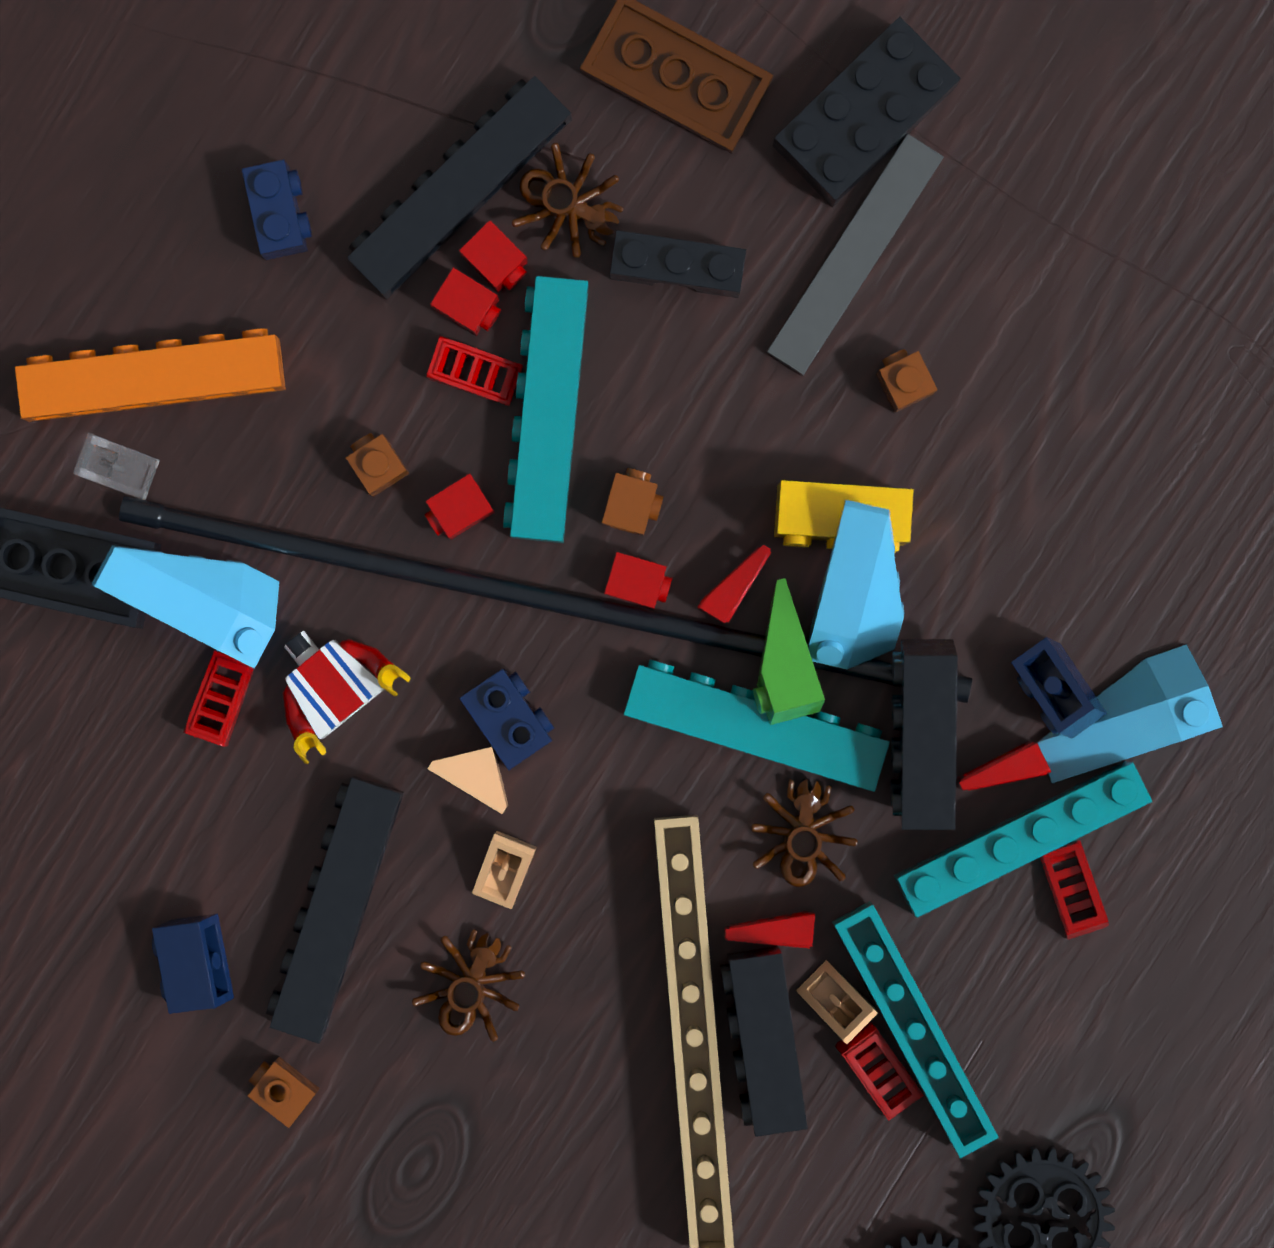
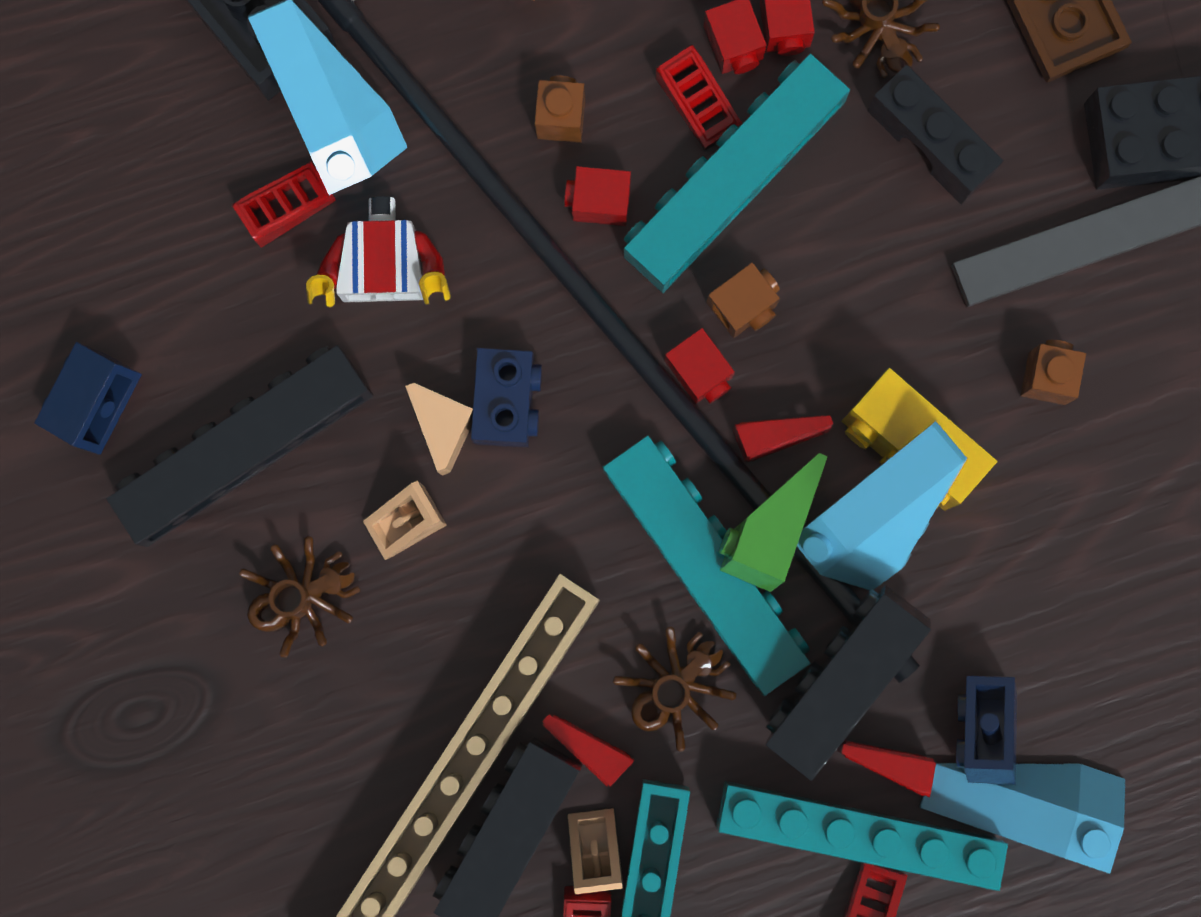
camera: 45 degrees right, 5 degrees down
(281, 1090) = (77, 561): dark orange brick -> none

